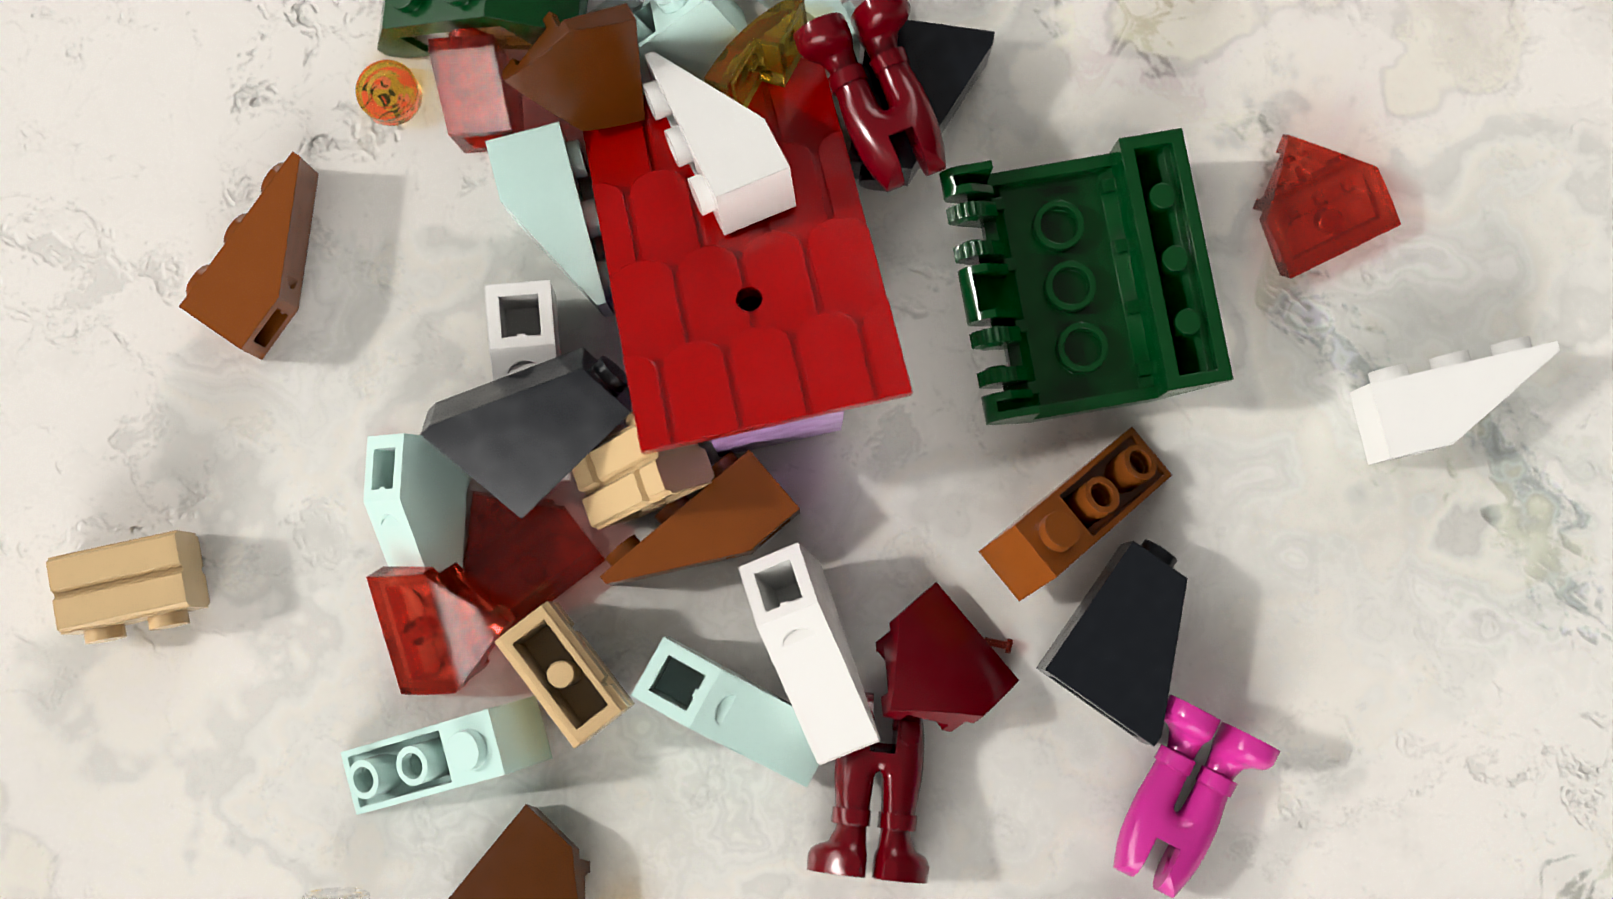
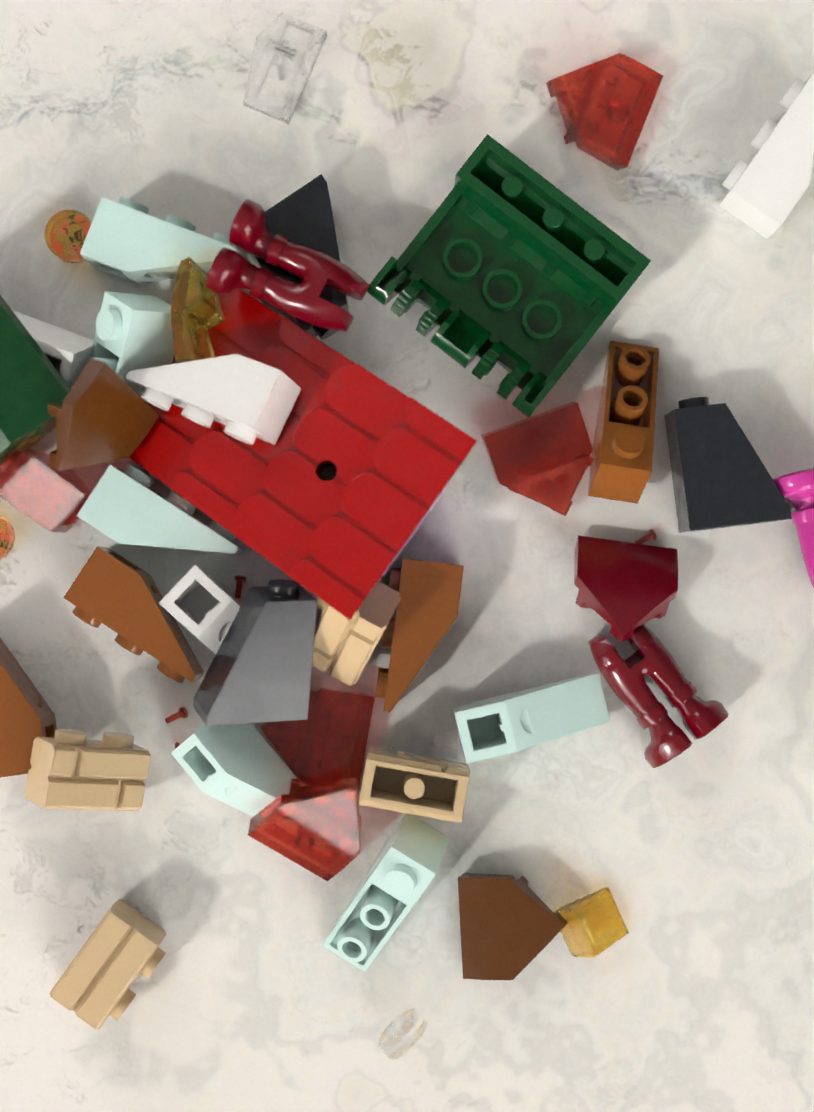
camera: 40 degrees left, 5 degrees up
(274, 385) = (87, 773): none -> tan brick
(415, 413) = (182, 713): none -> clear red piece
(456, 256) = (127, 601): none -> dark orange slope
(582, 338) = (240, 579): none -> clear red piece
(810, 651) = (544, 643): white slope -> none
(969, 477) = (542, 455): none -> clear red slope

